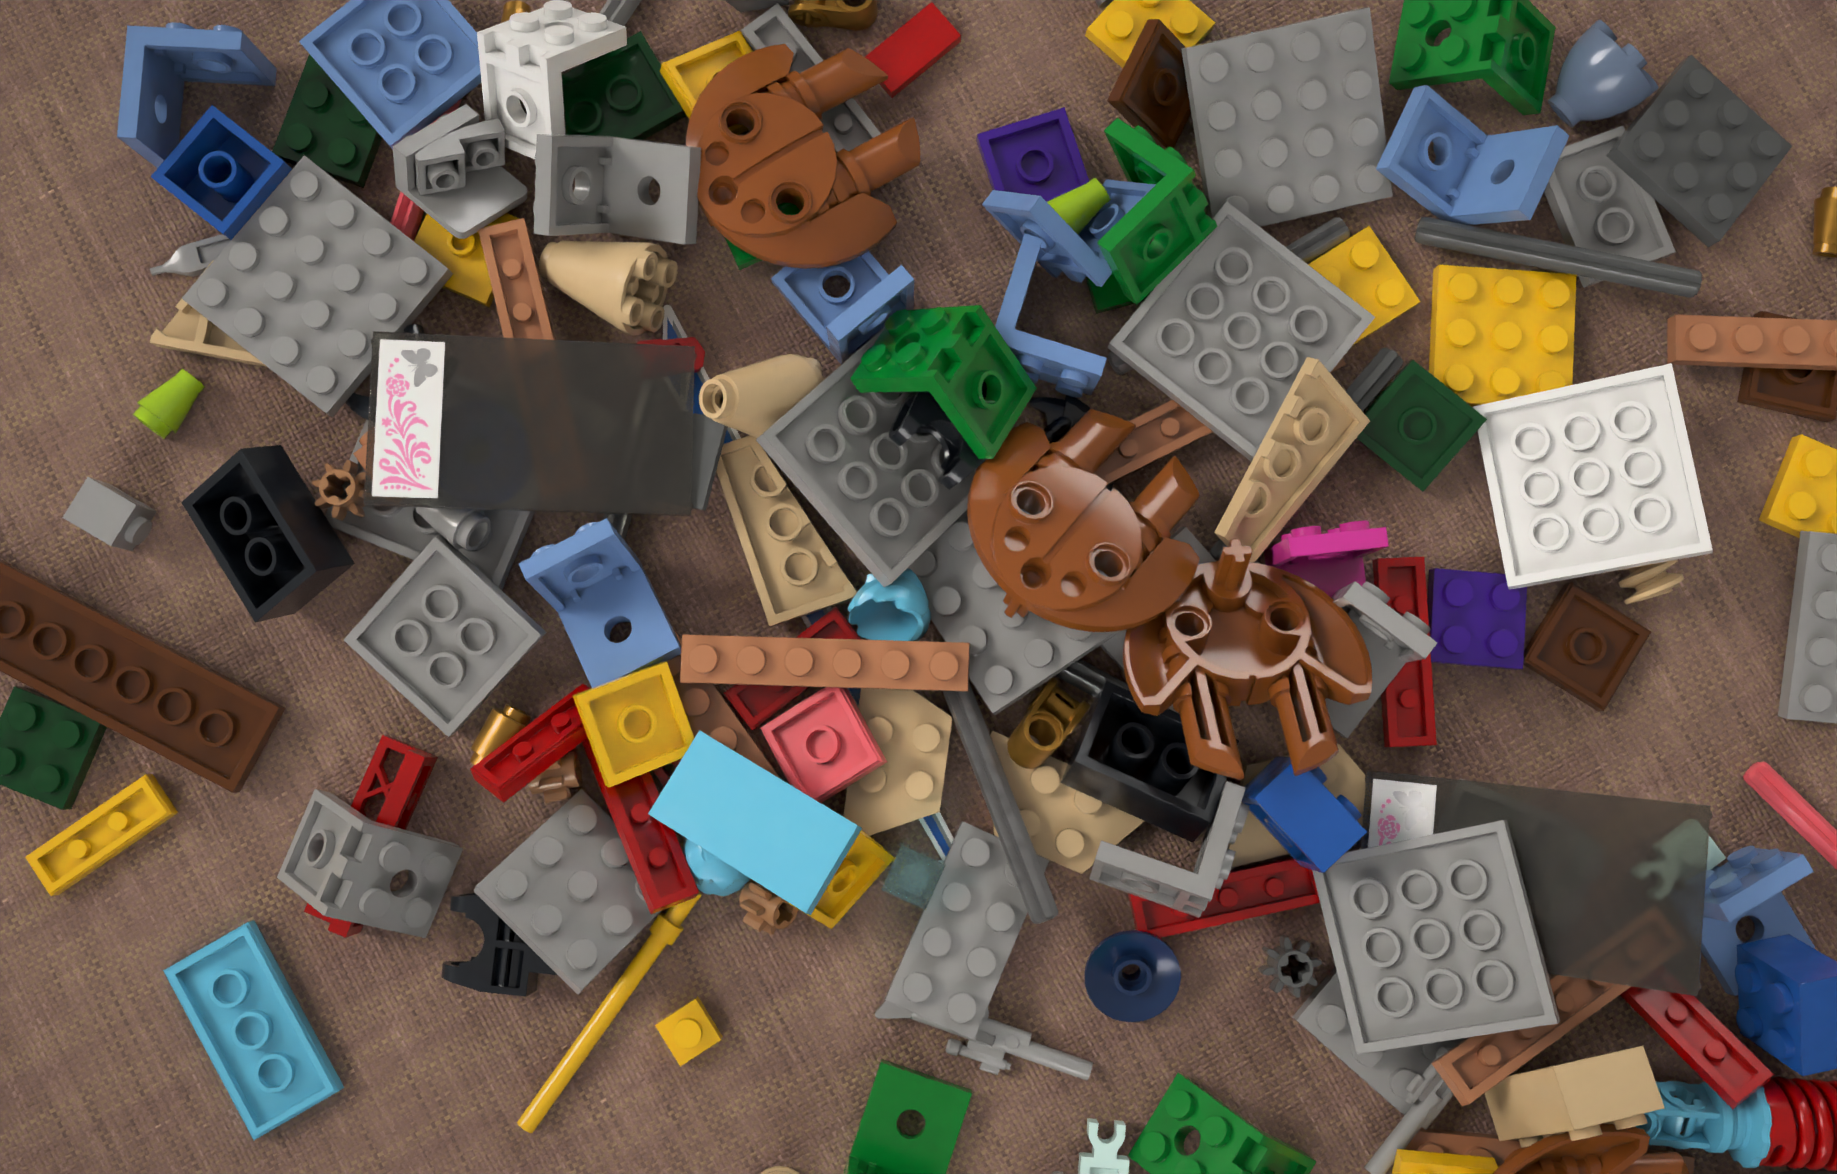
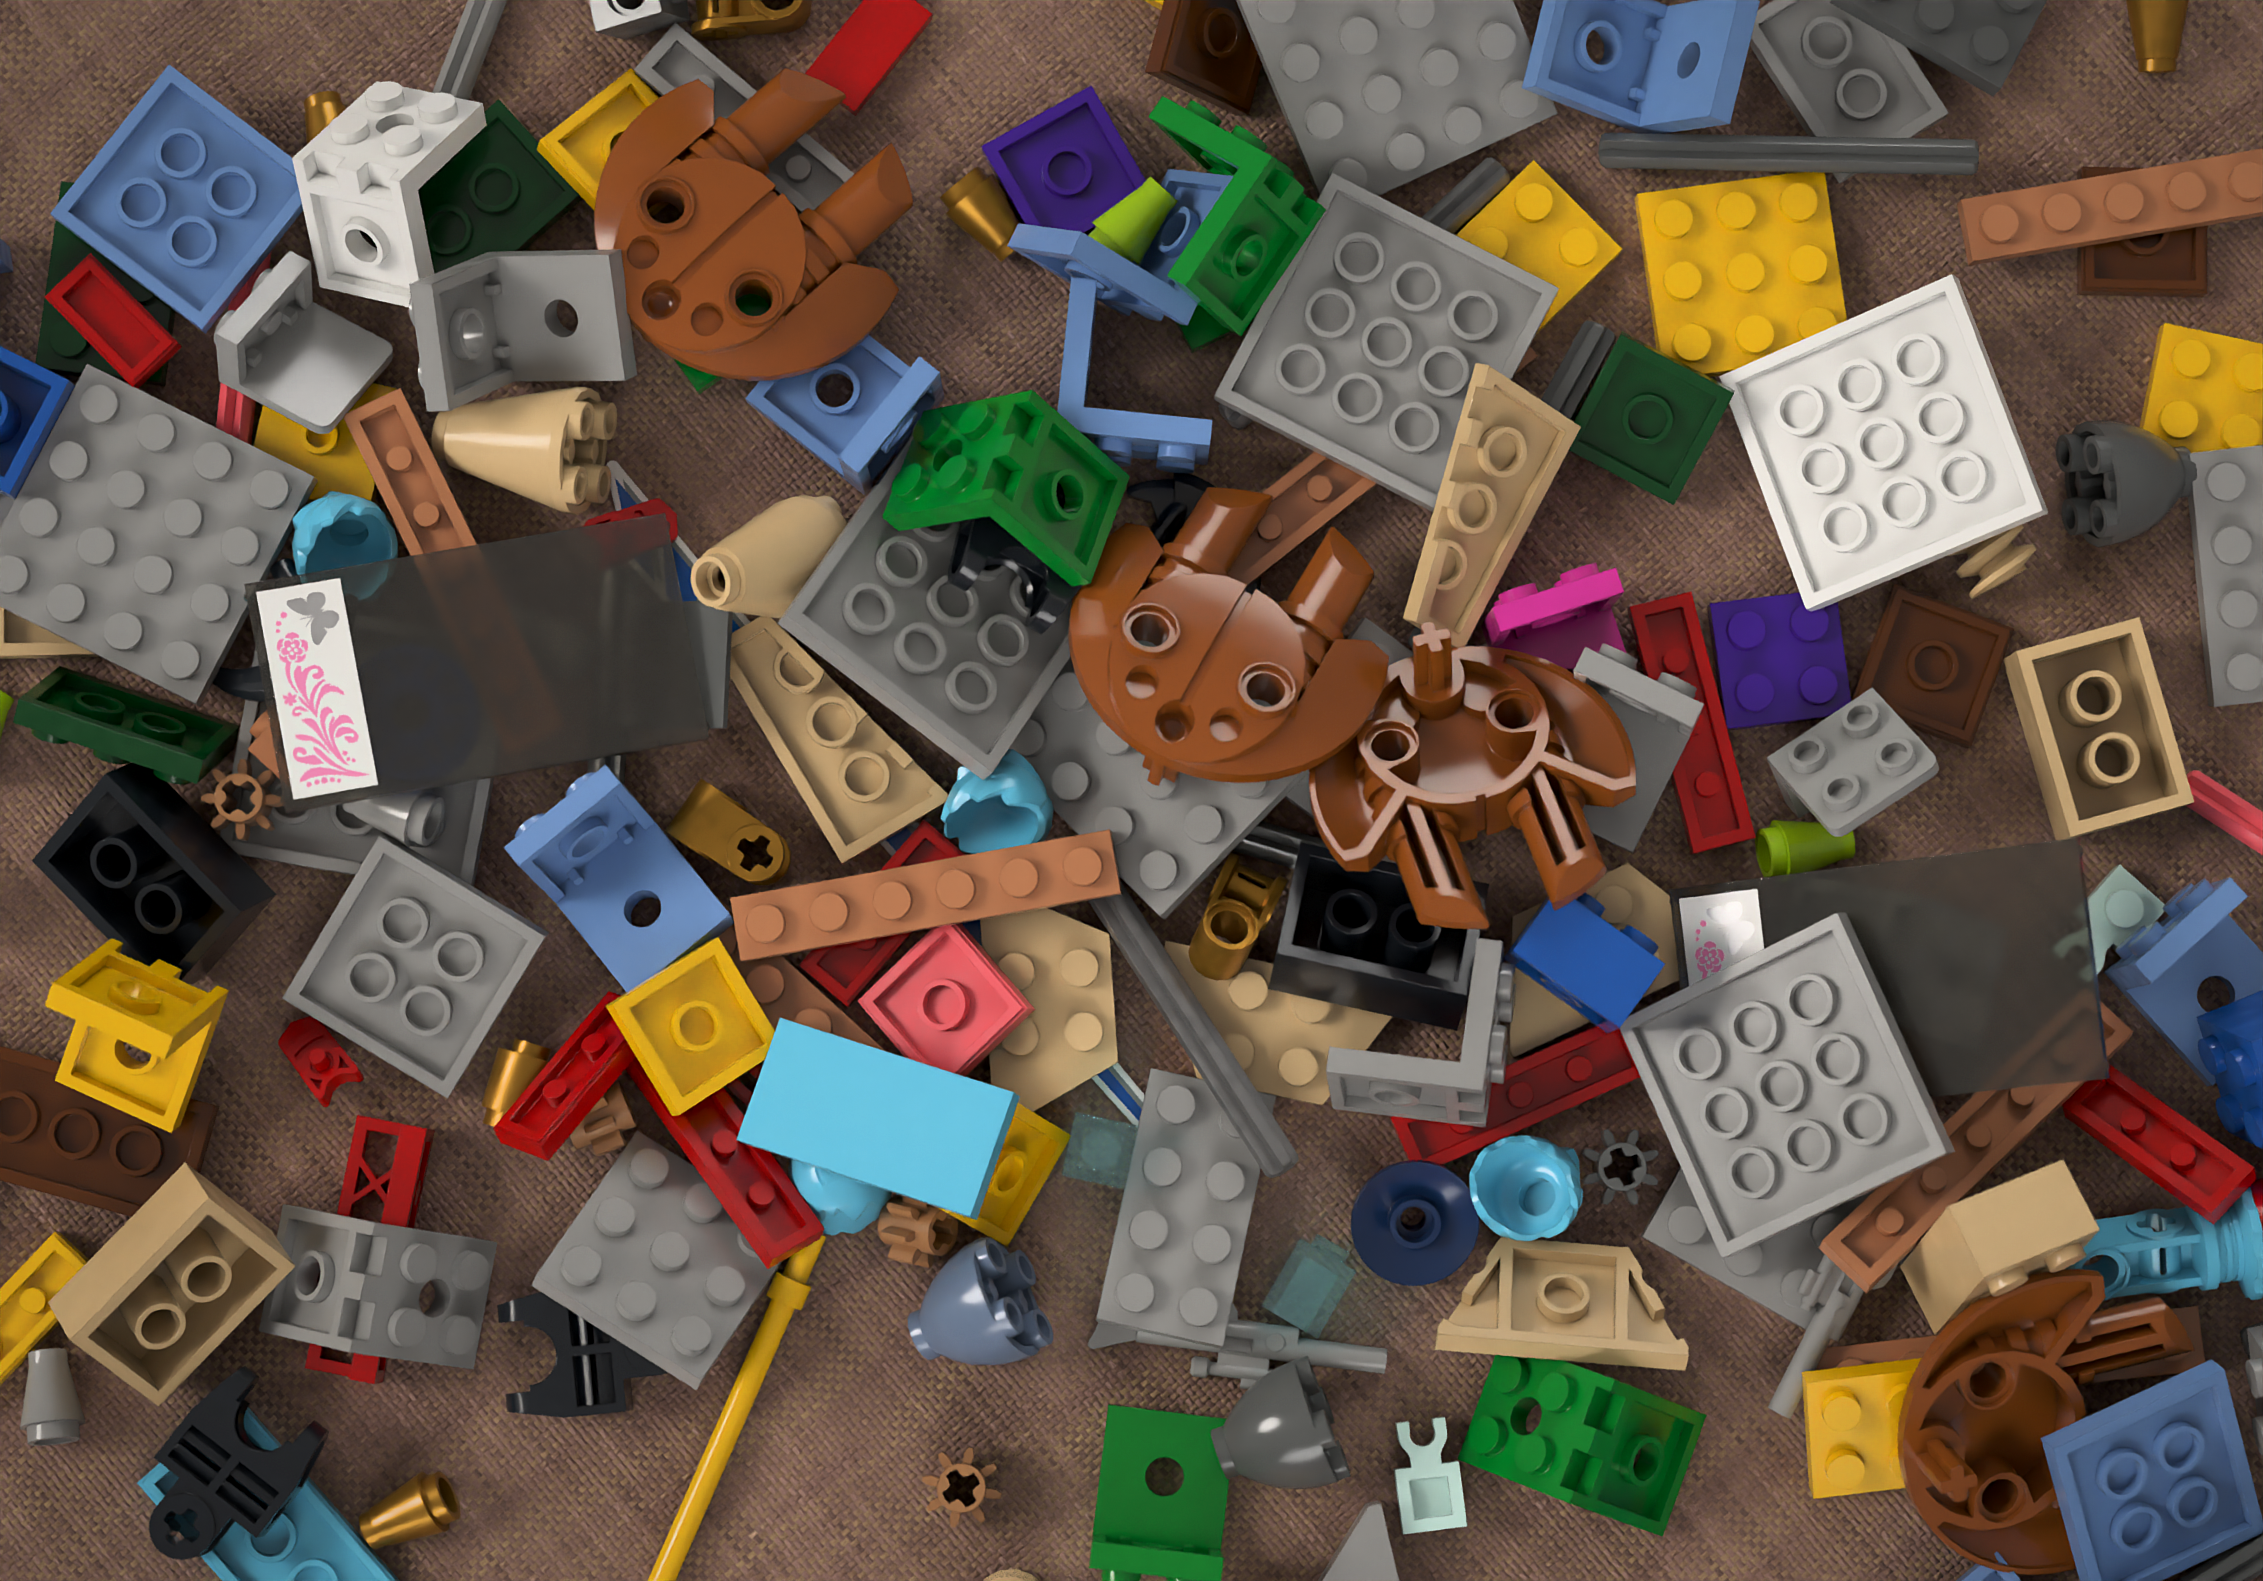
camera: 10 degrees left, 0 degrees up
(114, 896) = (50, 1400): none -> light grey cone
(211, 834) = (171, 1284): none -> tan brick
(221, 640) = (147, 1008): none -> yellow bracket
(222, 981) = (218, 1432): none -> black piece
(271, 419) = (125, 726): none -> dark green plate
(330, 130) = (113, 321): none -> red tile
(357, 1034) = (411, 1512): none -> pearl gold cone
(362, 689) = (318, 1058): none -> red piece
(459, 311) = (341, 533): none -> medium azure hair
(471, 148) = (283, 334): light grey slope -> none
(689, 584) = (723, 831): none -> pearl gold piece
(689, 1031) = (847, 1418): yellow plate -> none
(755, 1113) = (958, 1504): none -> medium nougat gear
(803, 974) = (981, 1308): none -> sand blue piece
(968, 181) = (982, 211): none -> pearl gold cone
(1004, 1114) = (1282, 1432): none -> dark grey piece
(1045, 1006) = (1309, 1284): none -> clear light blue brick
(1221, 969) = (1526, 1187): none -> medium azure hair
(1230, 1063) = (1563, 1306): none -> tan wing
(1467, 758) = (1799, 847): none -> lime cone
(1524, 709) = (1852, 765): none -> light grey bracket
(1704, 719) = (2098, 729): none -> tan brick
(1752, 540) = (2119, 480): none -> dark grey piece

